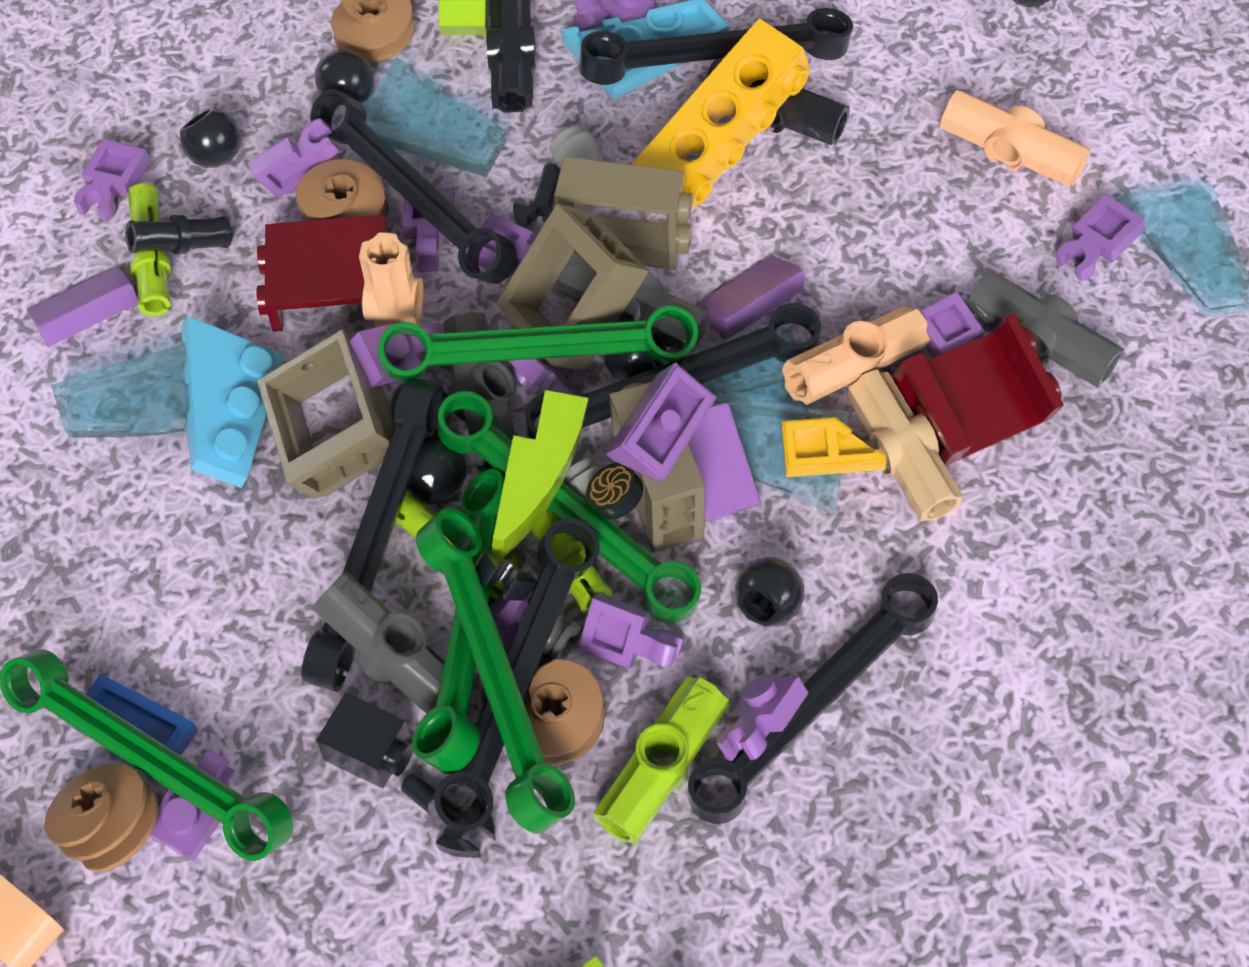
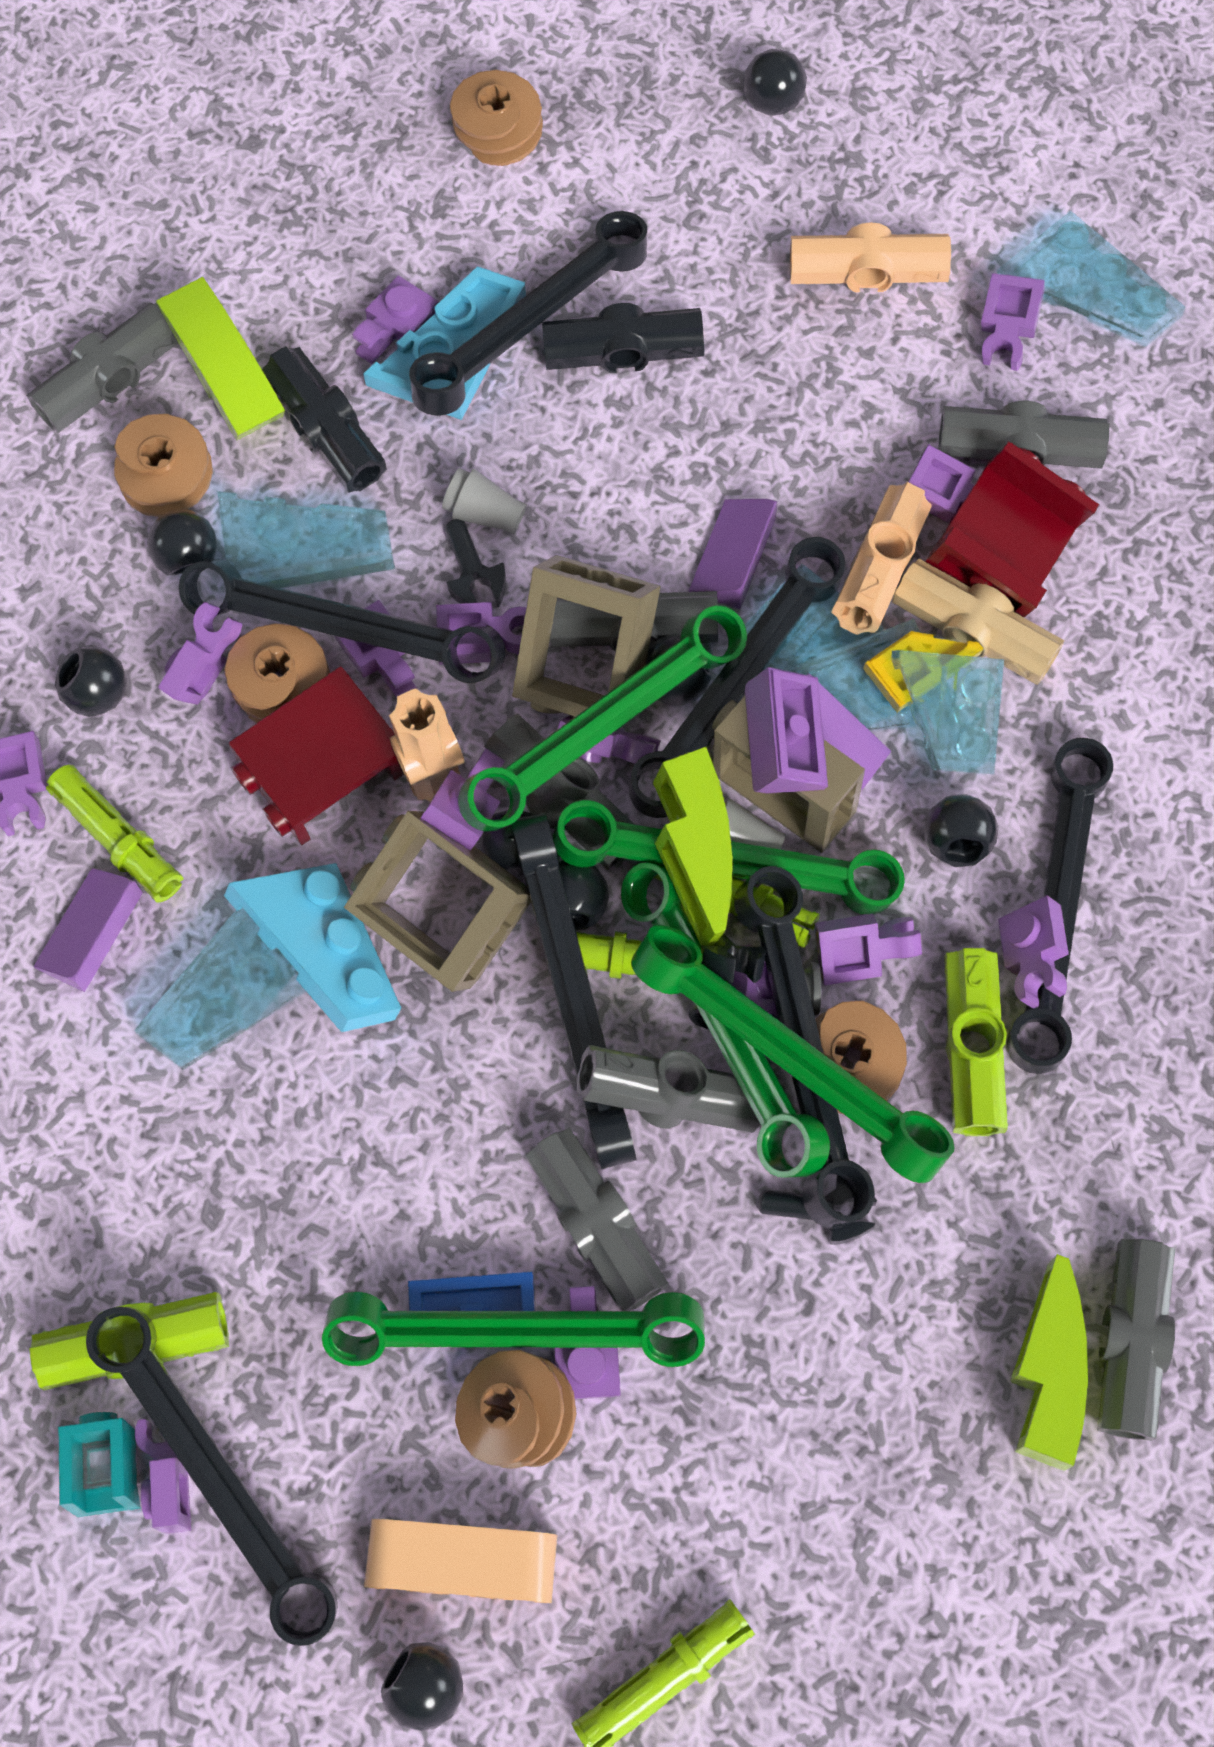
camera: 30 degrees left, 10 degrees up
(178, 234) = (140, 802): black pin -> none
(269, 713) = (596, 1220): none -> dark grey piece
(366, 741) = (705, 1189): black brick -> none
(614, 491) = (770, 819): black tile -> none
(634, 189) = (586, 521): dark tan window -> none
(726, 92) = (601, 300): yellow brick -> none
(830, 493) = (955, 707): none -> clear light blue wing

